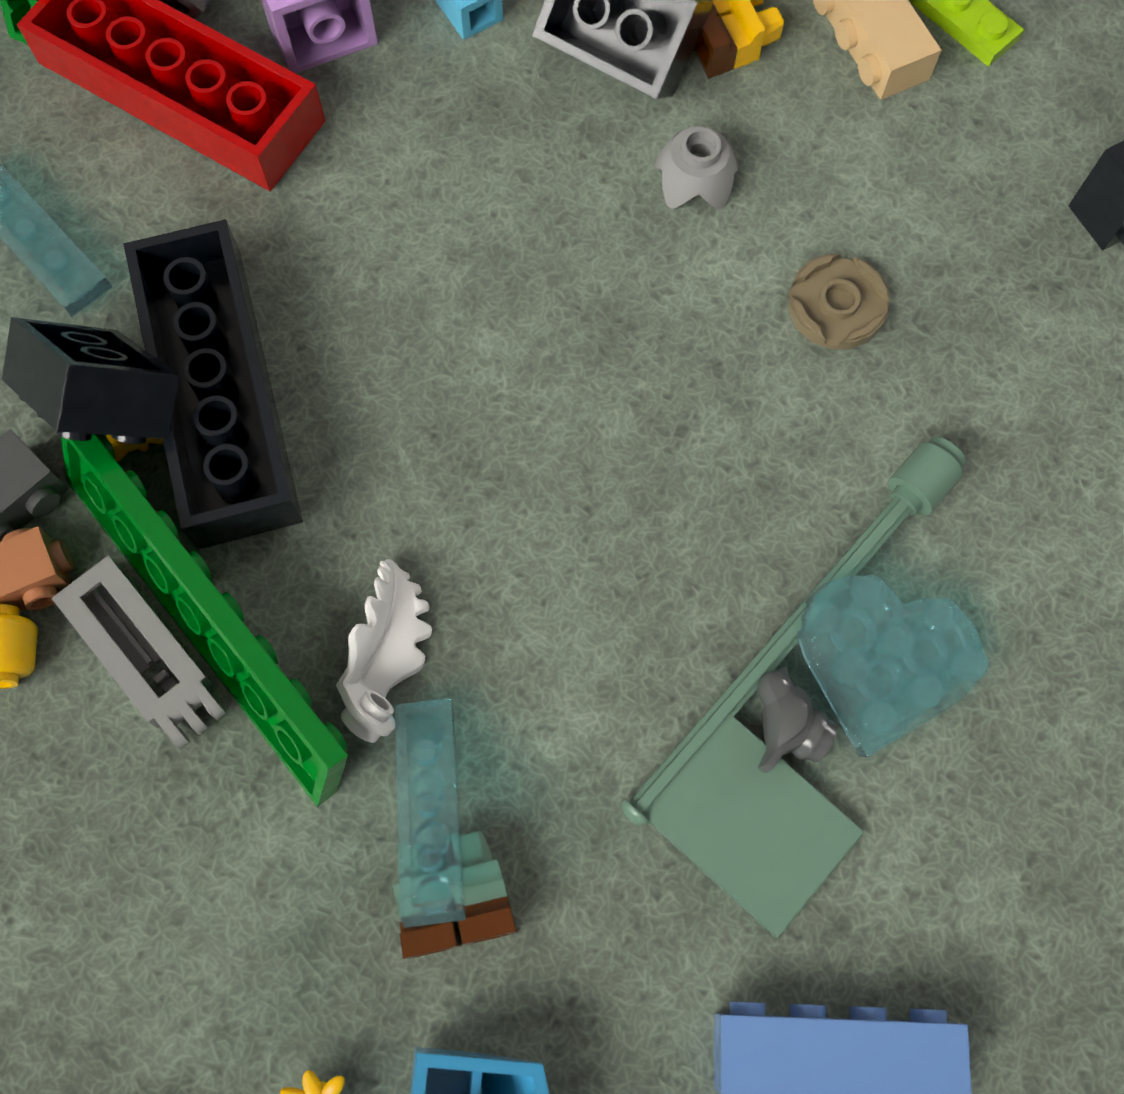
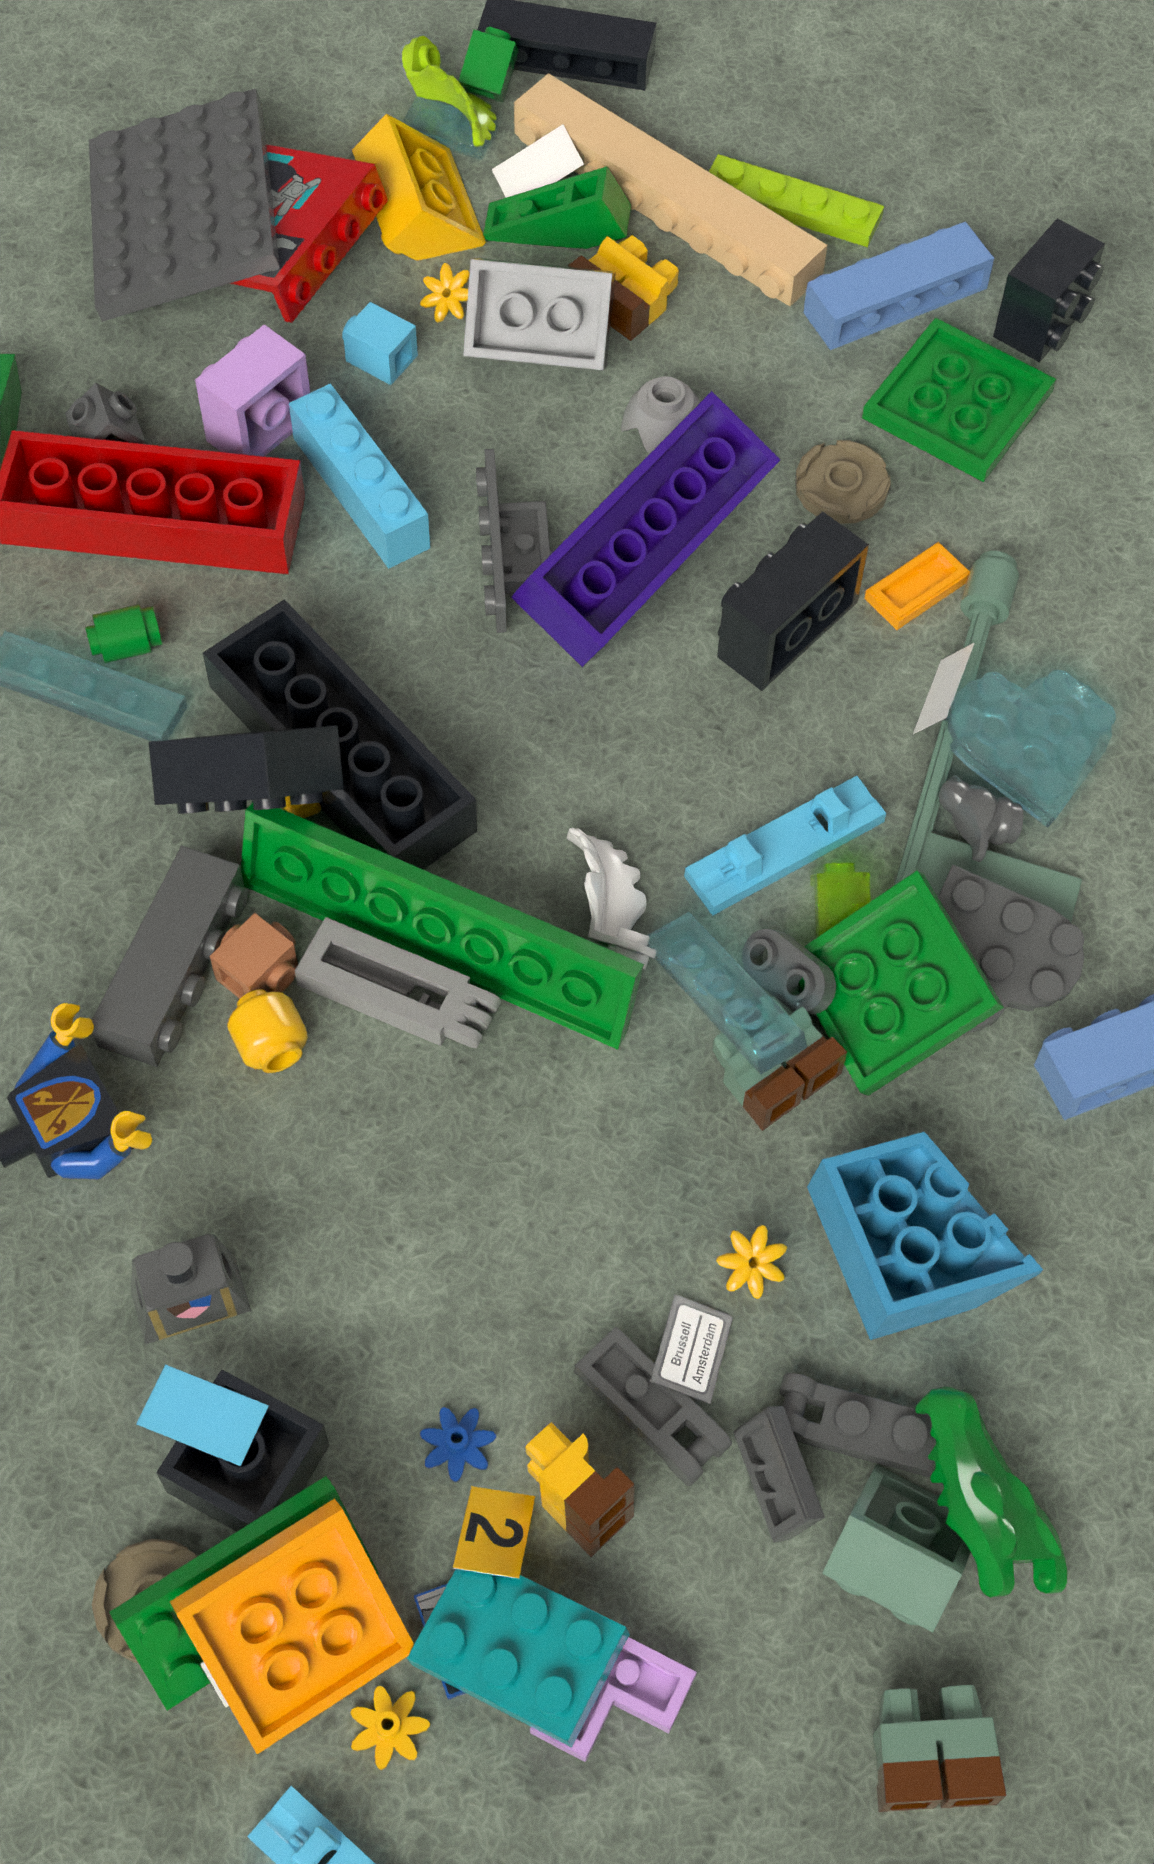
camera: 25 degrees left, 10 degrees down
(89, 192) = (123, 633): none -> green brick
(376, 119) = (360, 476): none -> medium azure brick
(485, 243) = (516, 541): none -> dark grey bracket
(512, 808) = (784, 969): none -> dark grey plate
(585, 663) = (784, 845): none -> medium azure hinge
(603, 876) = (900, 983): none -> green plate
(605, 751) = (838, 894): none -> clear neon green bracket
(610, 277) = (645, 529): none -> dark purple brick
(713, 410) = (791, 599): none -> black brick
(724, 878) = (1019, 944): none -> dark grey plate
(824, 565) = (943, 688): none -> white sticker
(857, 441) = (917, 585): none -> light orange tile
(996, 117) = (897, 285): none -> medium blue brick
(998, 260) = (959, 399): none -> green plate

